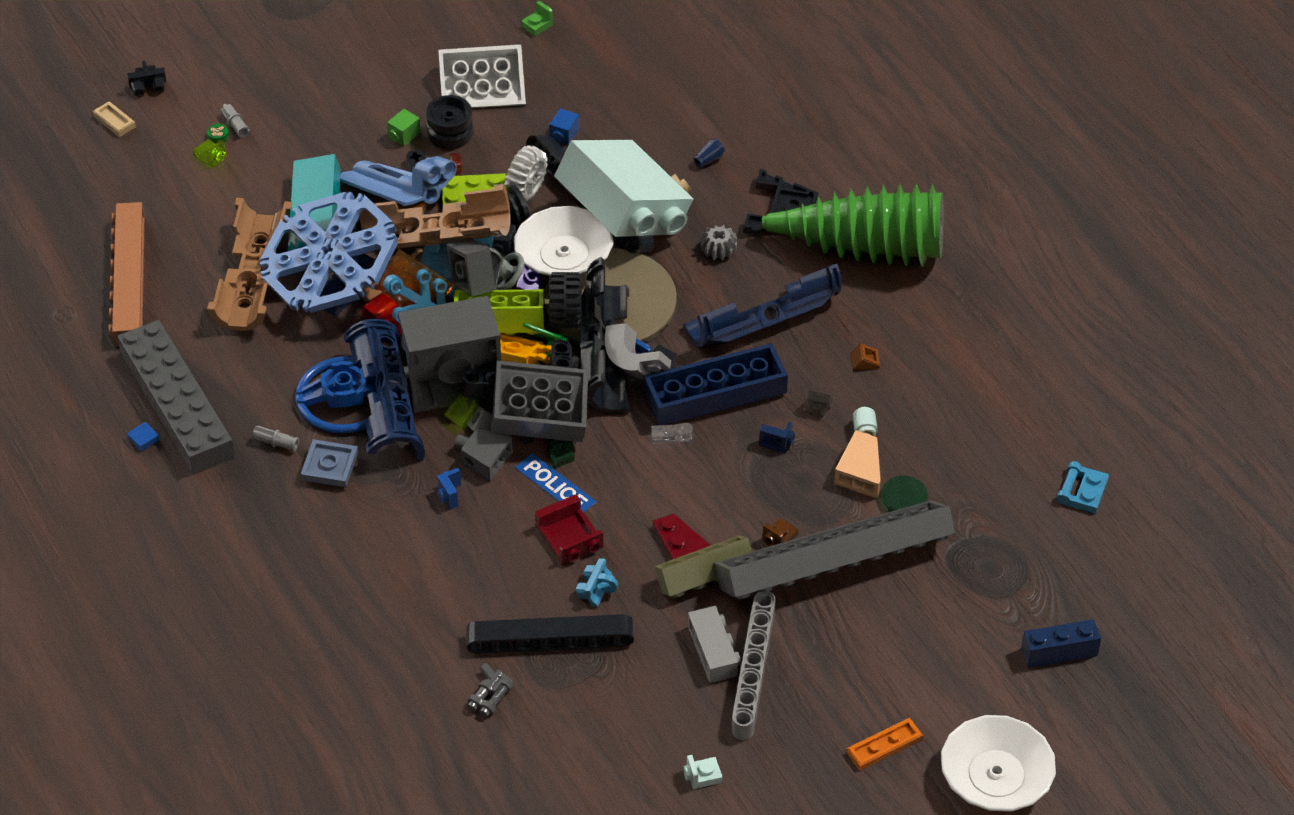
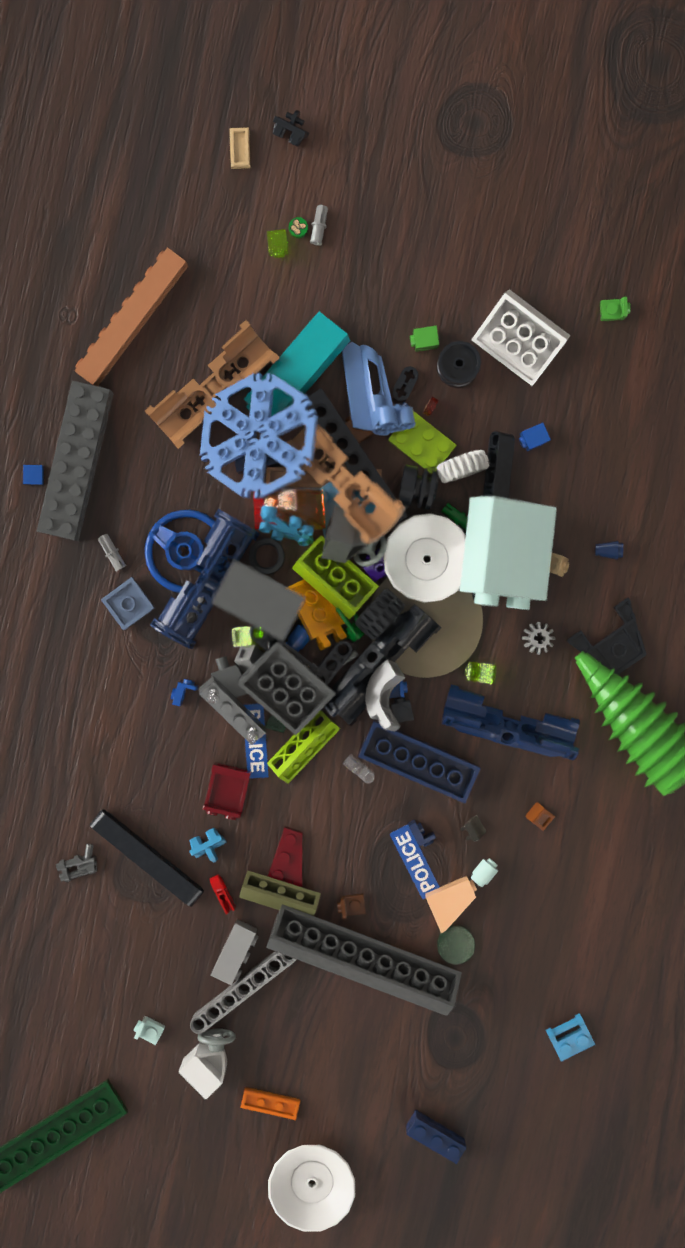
camera: 45 degrees right, 40 degrees up
(509, 457) = (232, 710): none -> dark grey piece
(609, 450) = (305, 749): none -> lime fence
(652, 608) = (222, 894): none -> red piece
(698, 296) = (480, 672): none -> clear neon green bracket
(787, 740) = (207, 1061): none -> white piece
(795, 466) = (414, 860): none -> blue sticker

